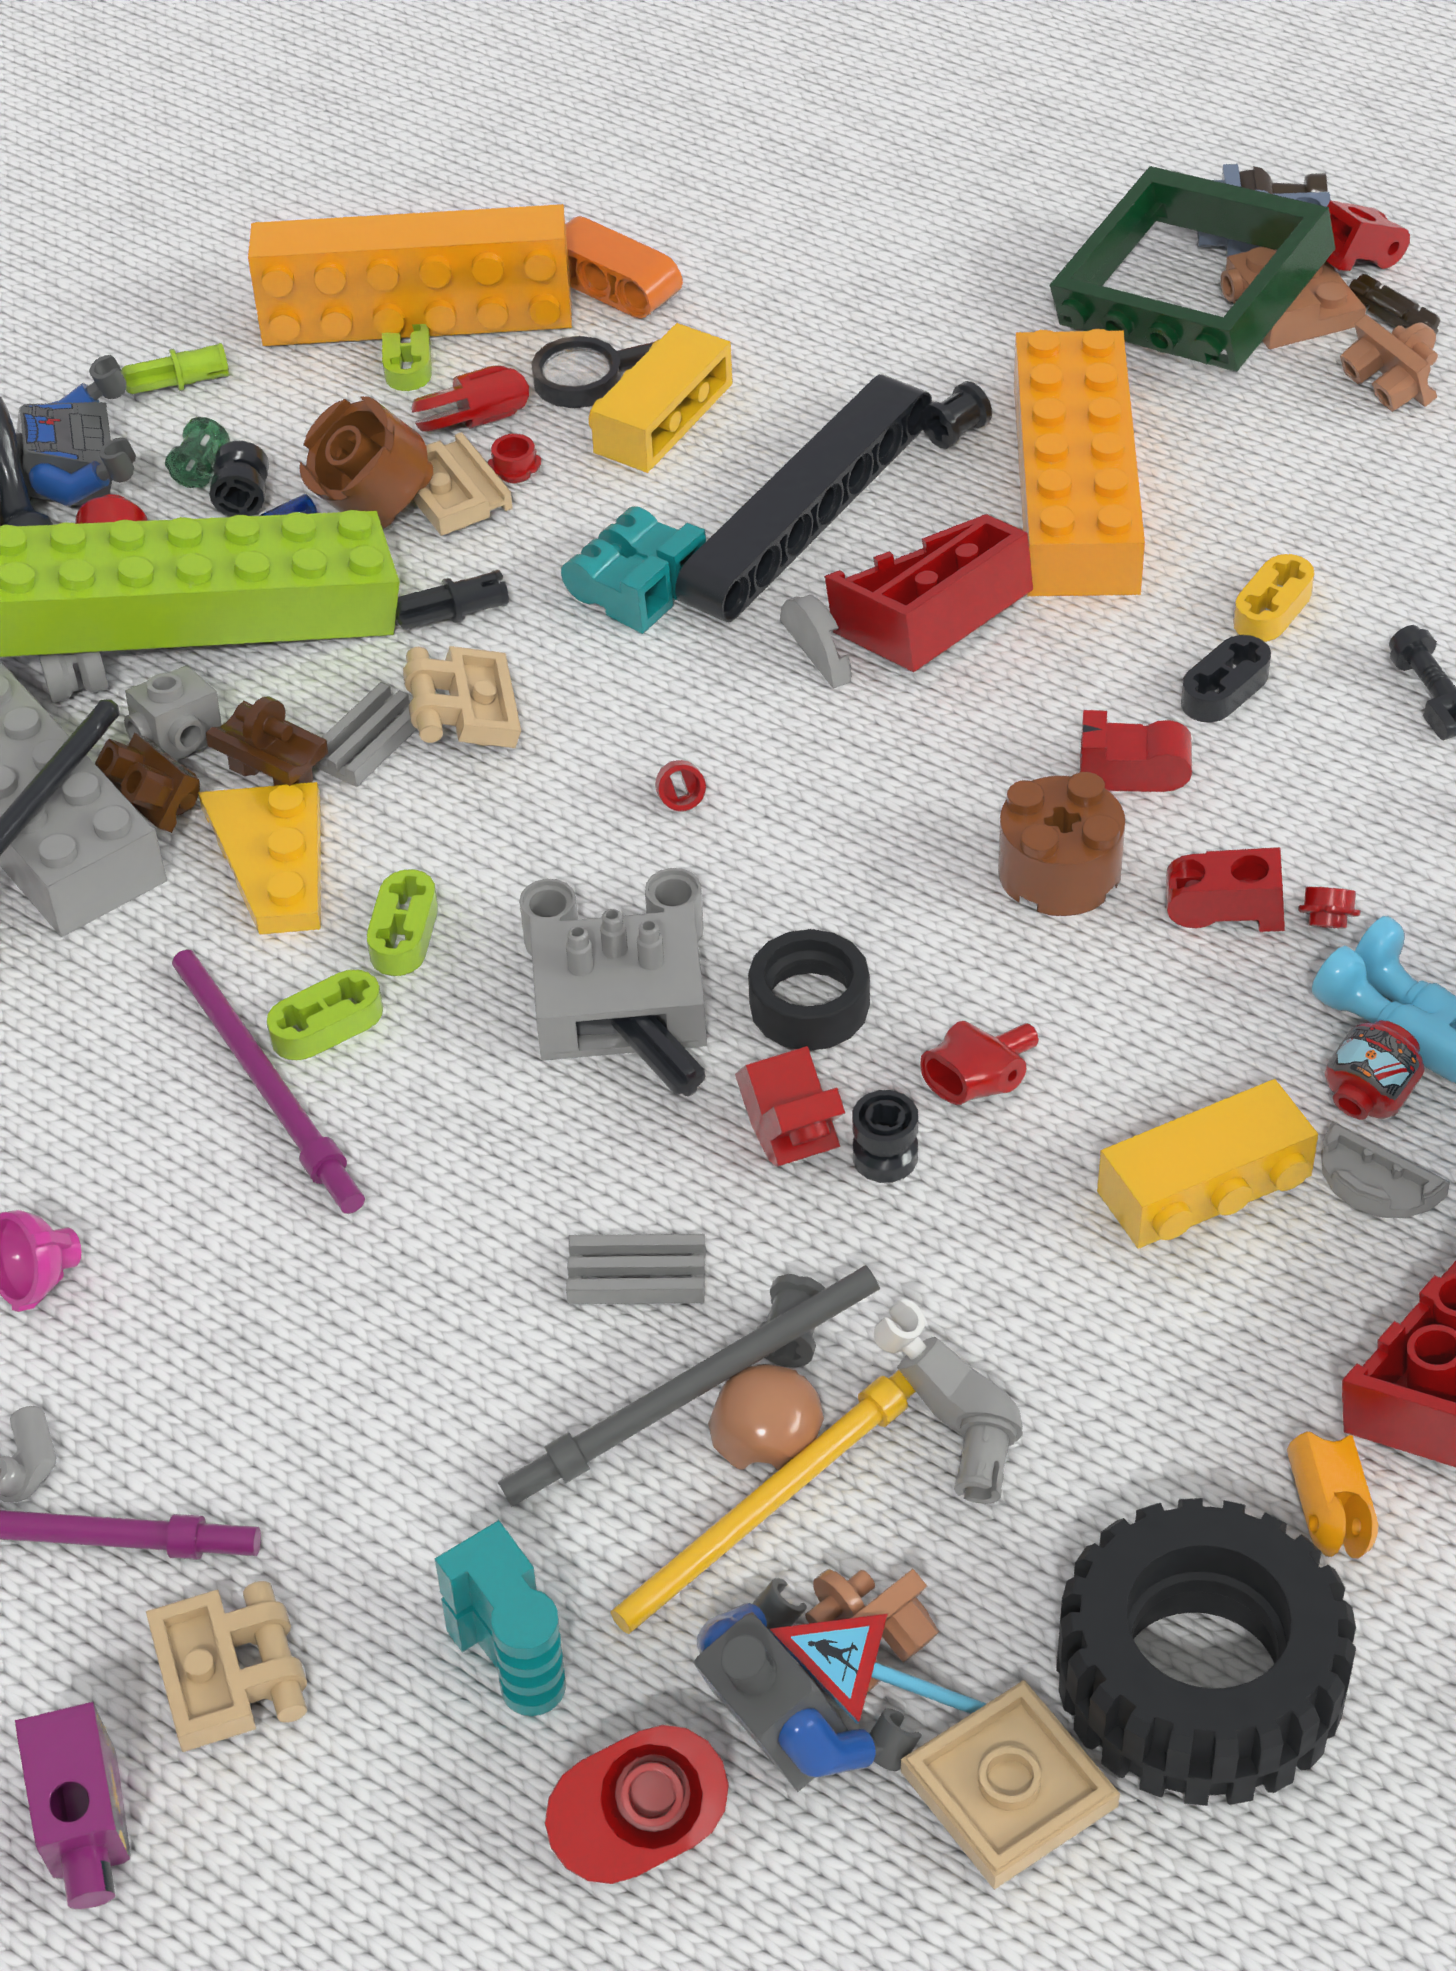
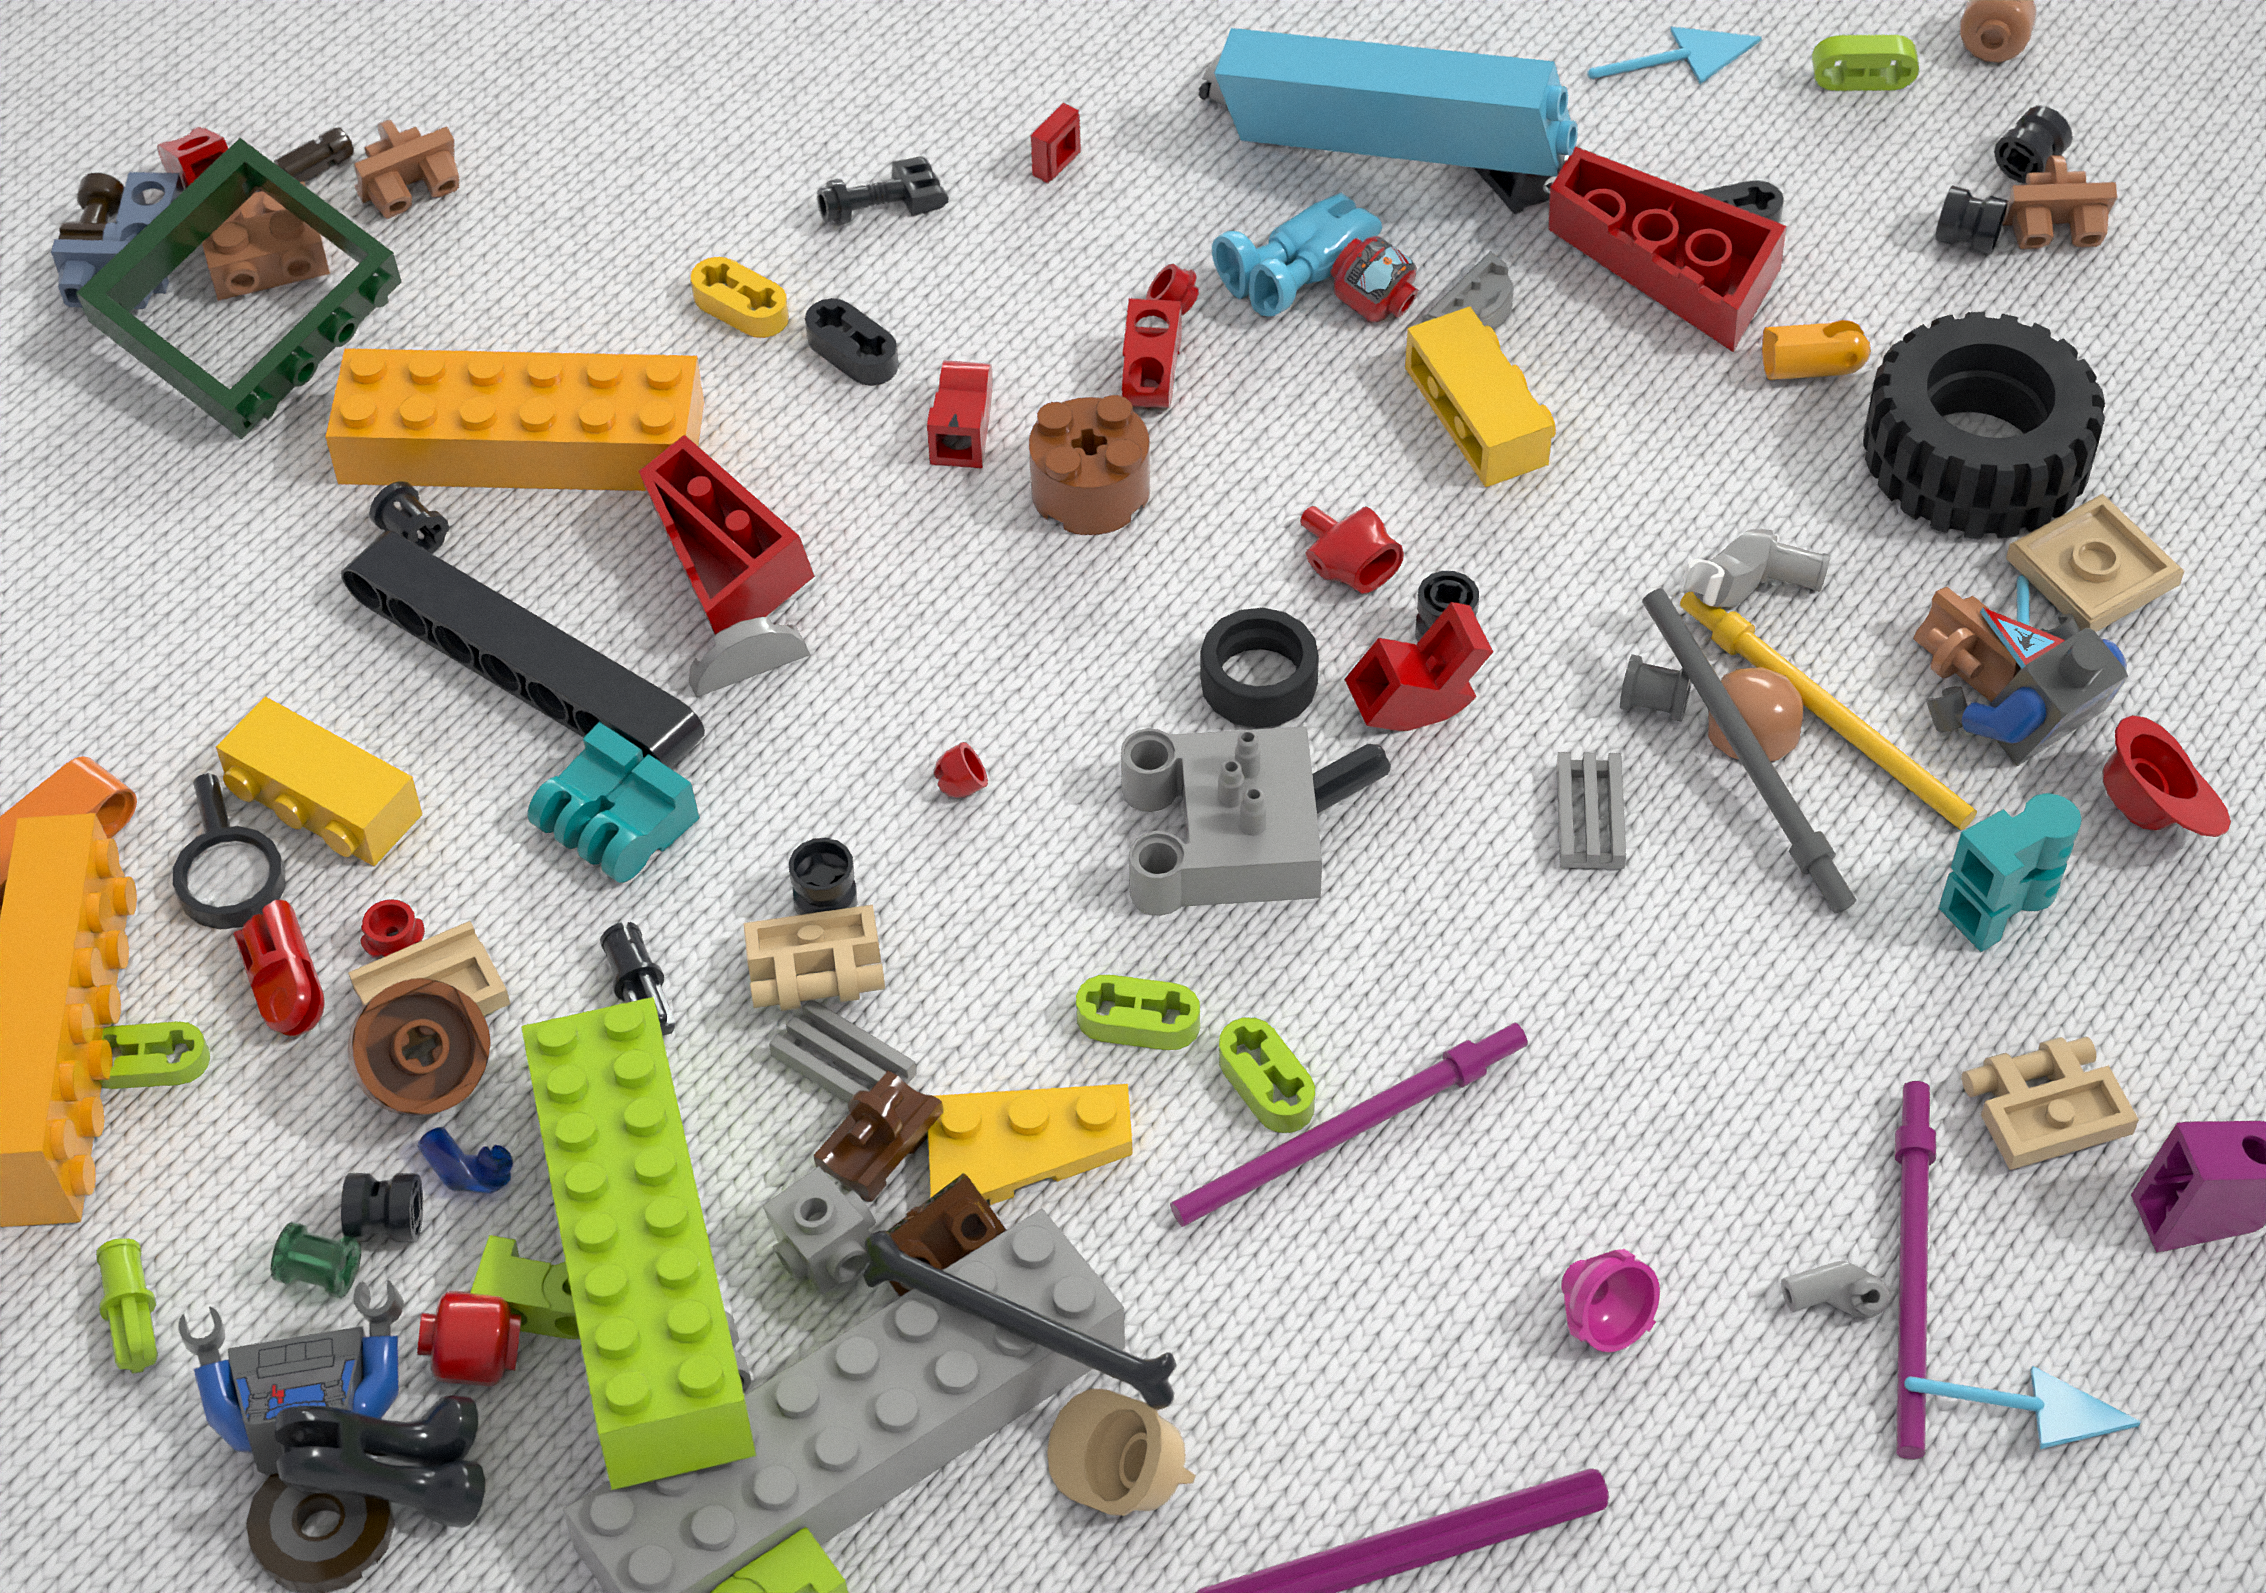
camera: 90 degrees left, 5 degrees up
(546, 697) = (822, 876): none -> black wheel

